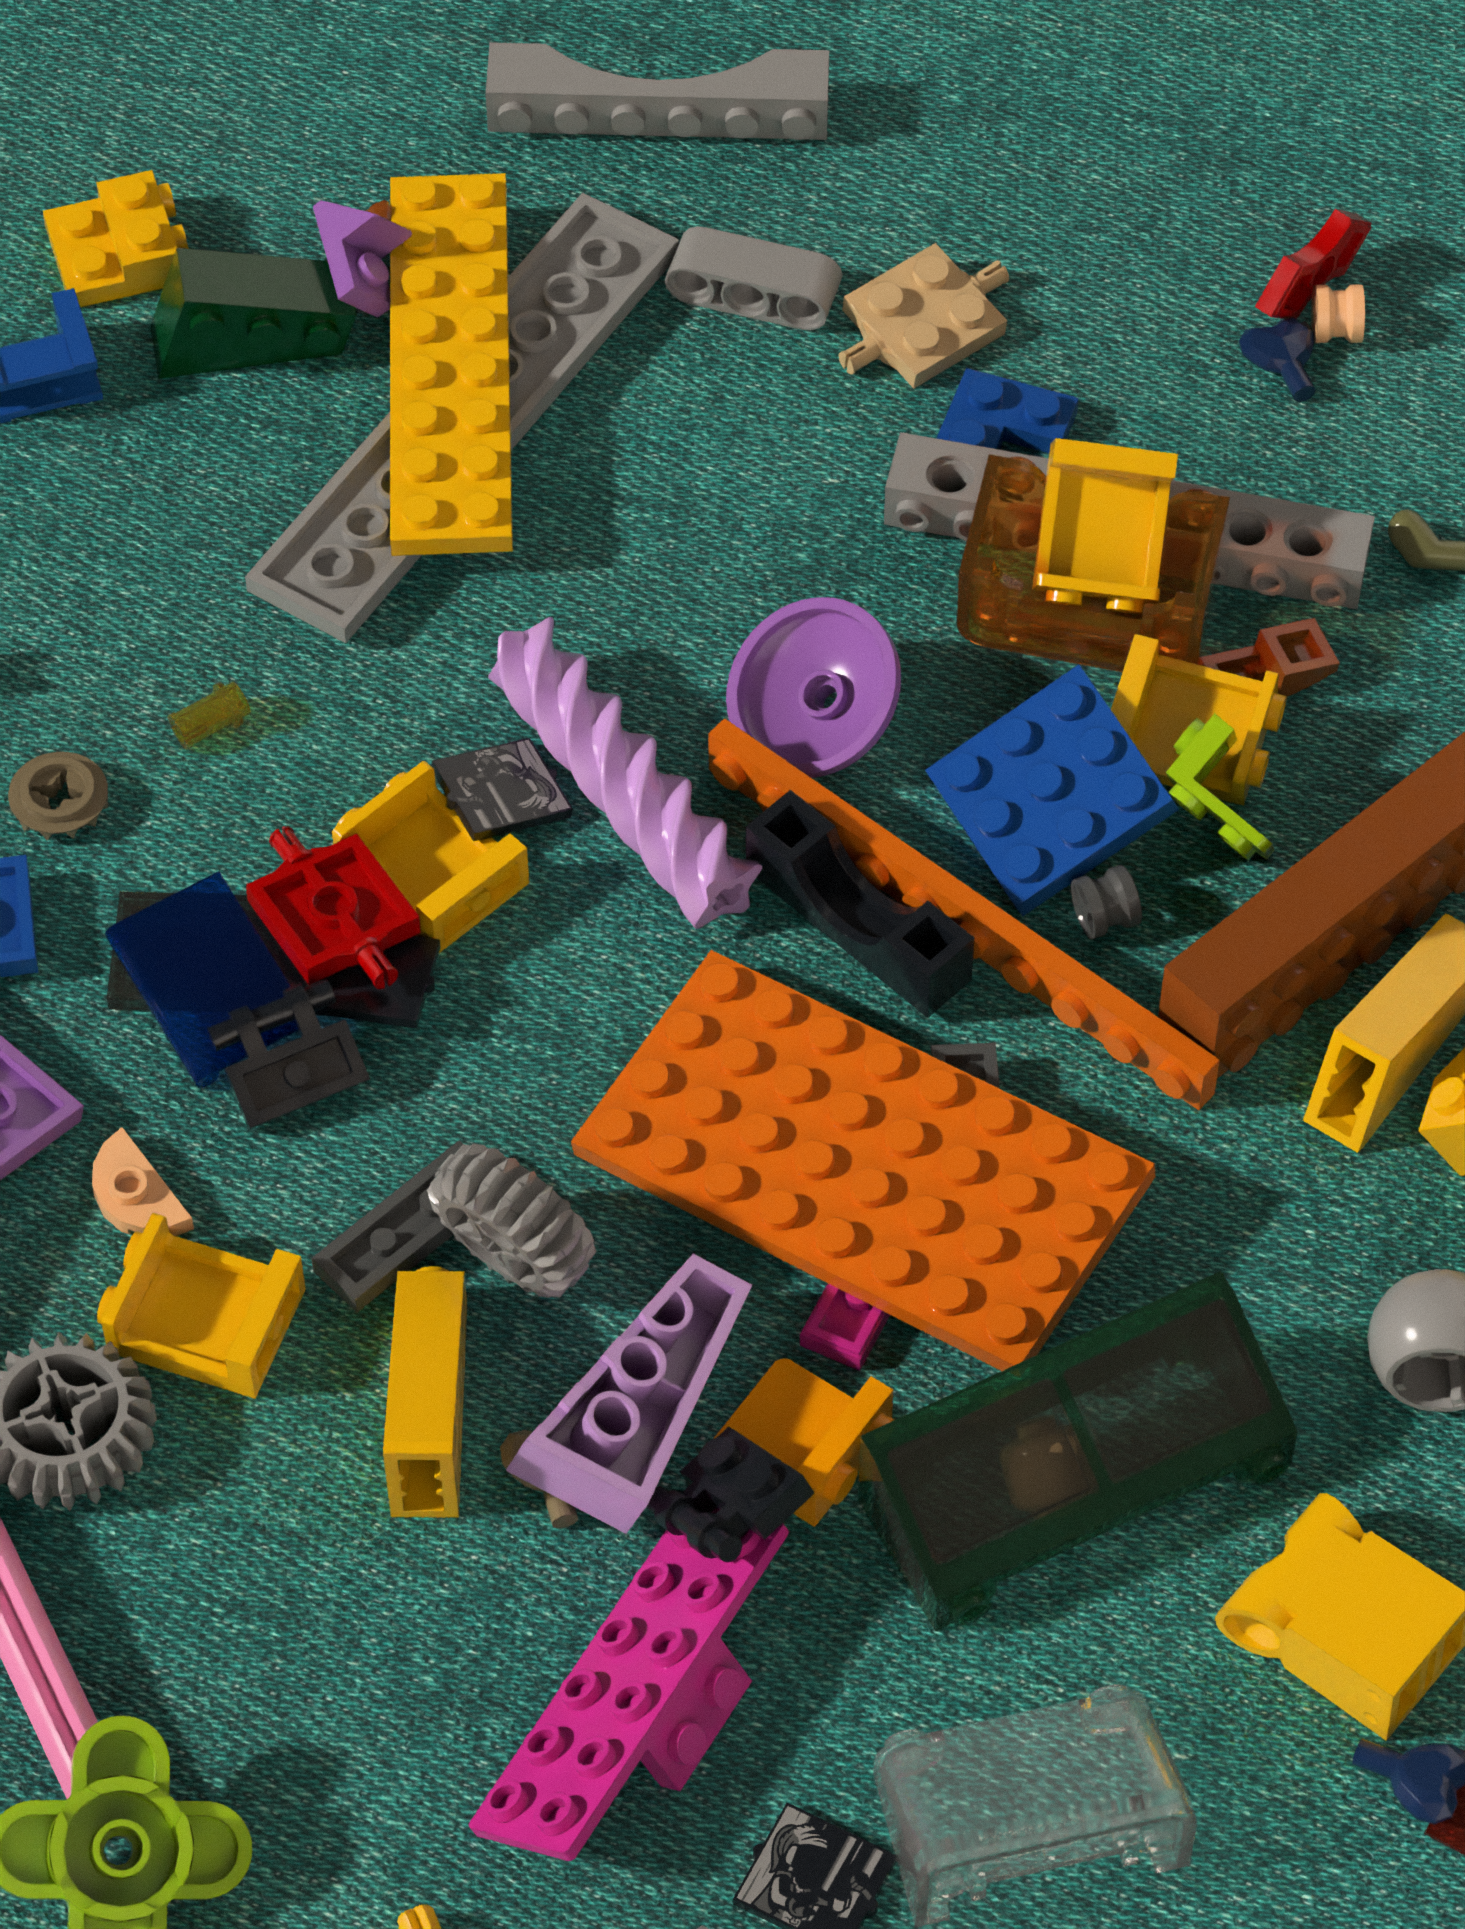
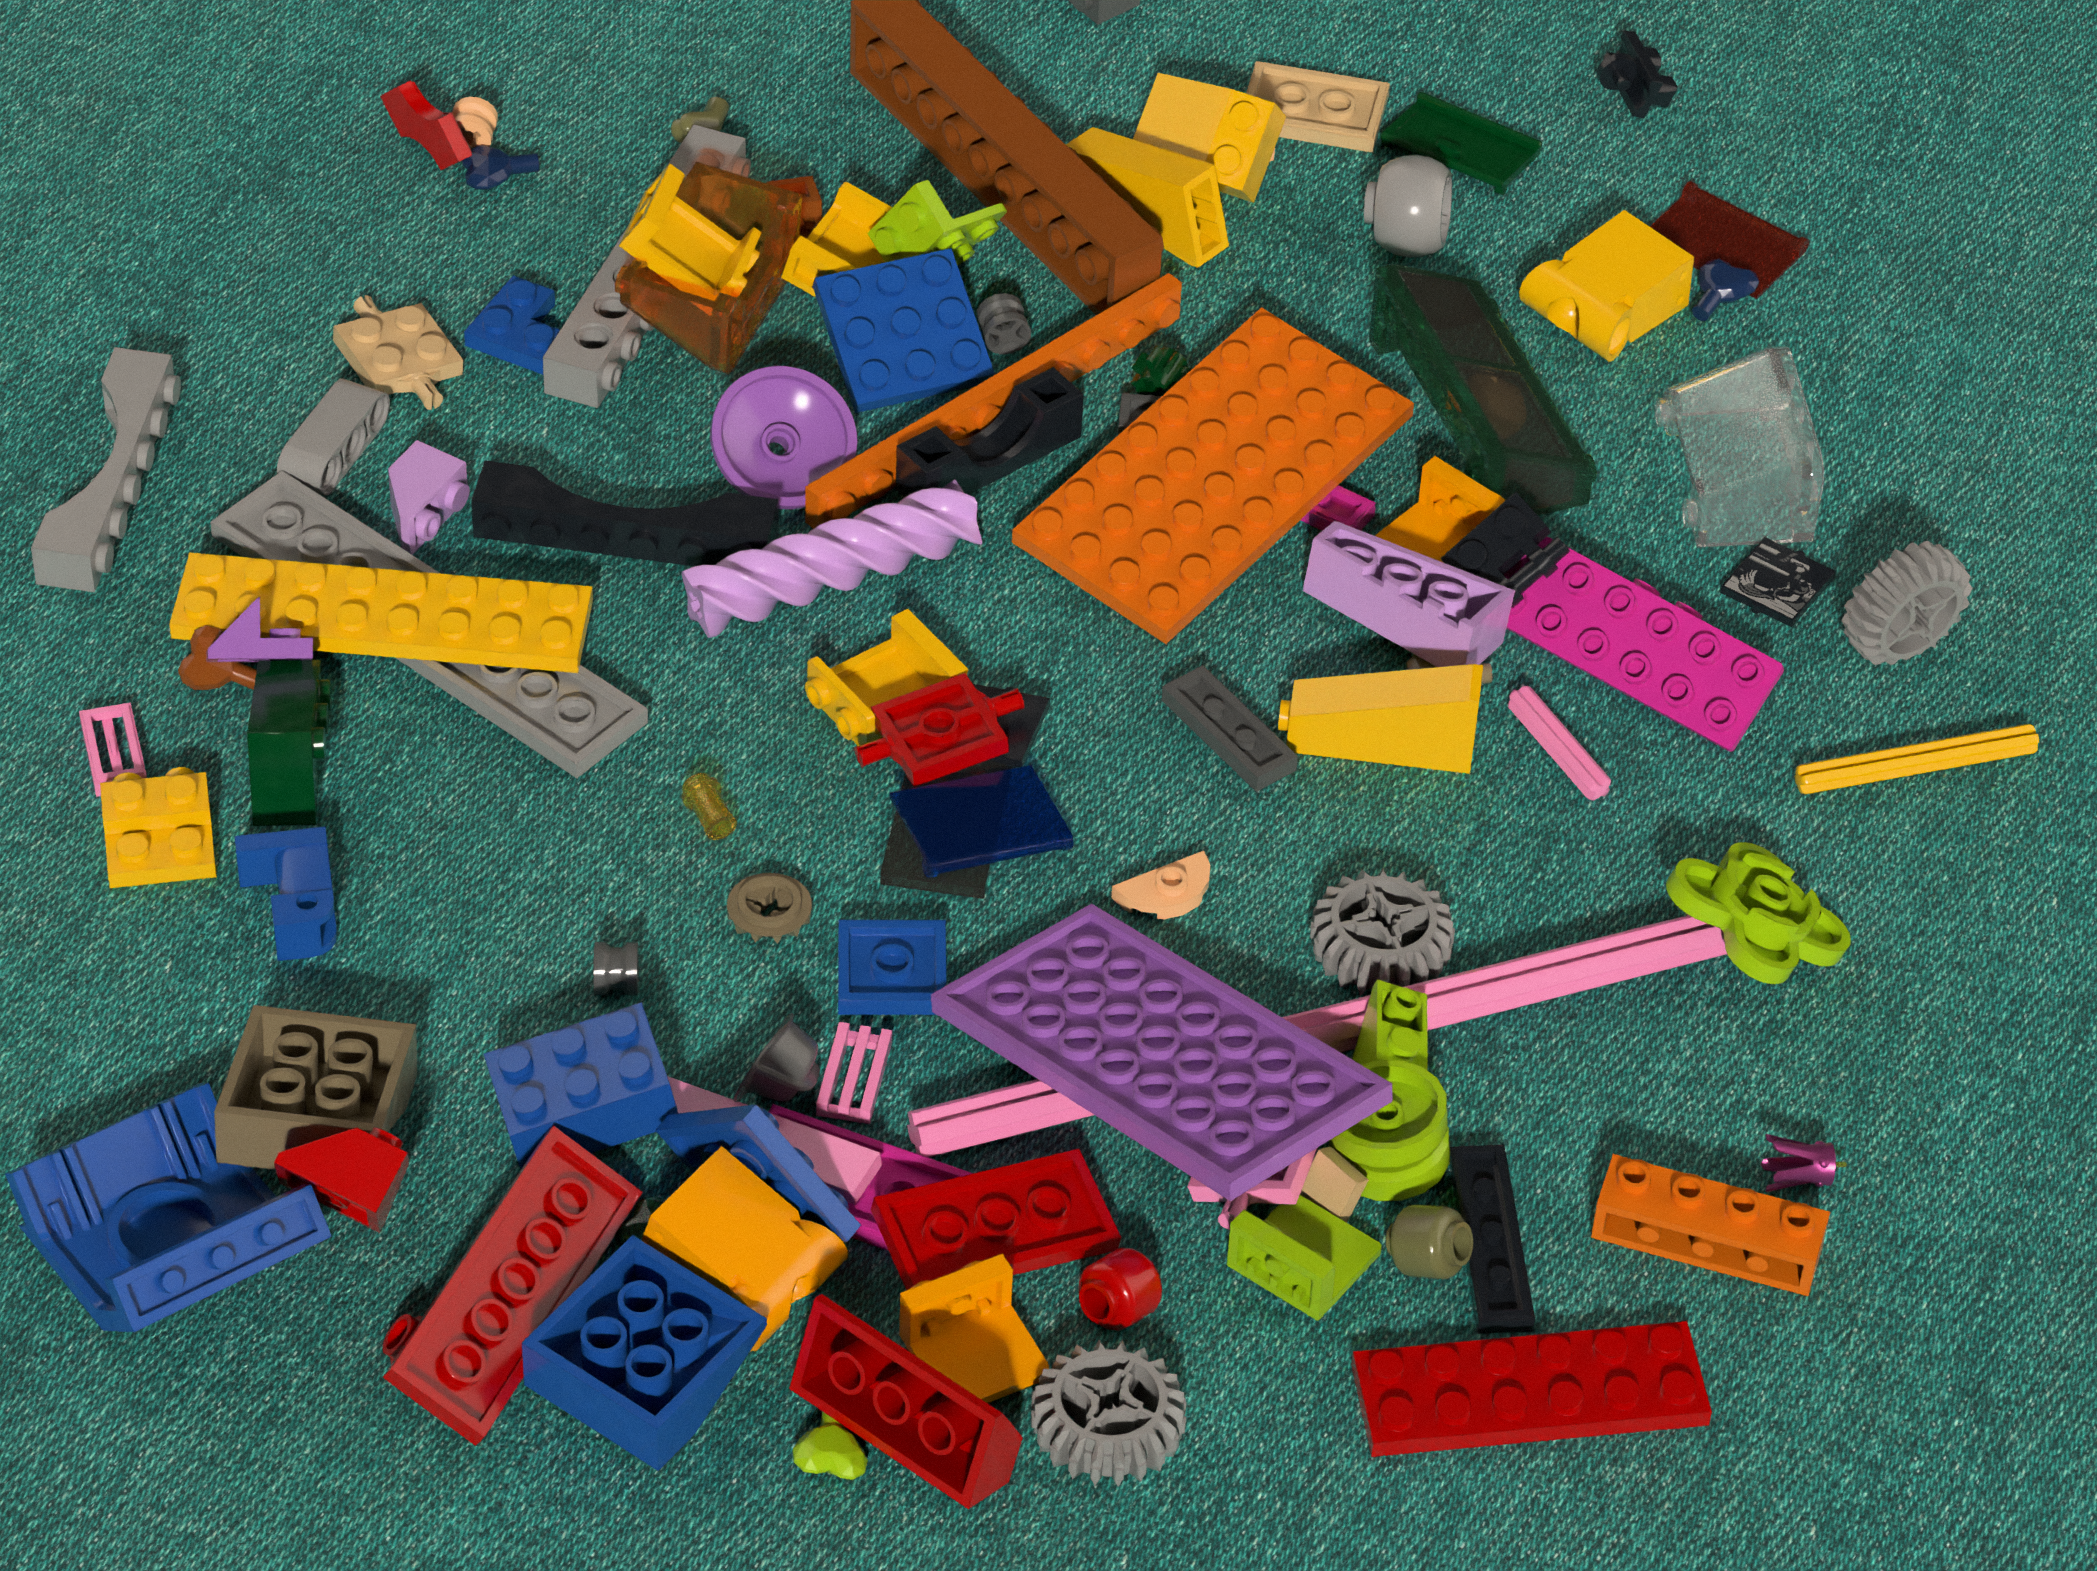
camera: 85 degrees left, 10 degrees down
(201, 1308) = (1289, 846): yellow panel -> none
(242, 194) = (106, 714): none -> bright pink tile
(297, 1071) = (1079, 774): black plate -> none
(443, 1611) = (1559, 743): none -> bright pink axle
(501, 789) = (830, 634): piece -> none
(511, 1220) = (1259, 642): light grey gear -> none
(659, 656) = (528, 508): none -> black arch
(666, 370) = (425, 492): none -> lavender slope
(1040, 1078) = (1158, 371): none -> dark green gear

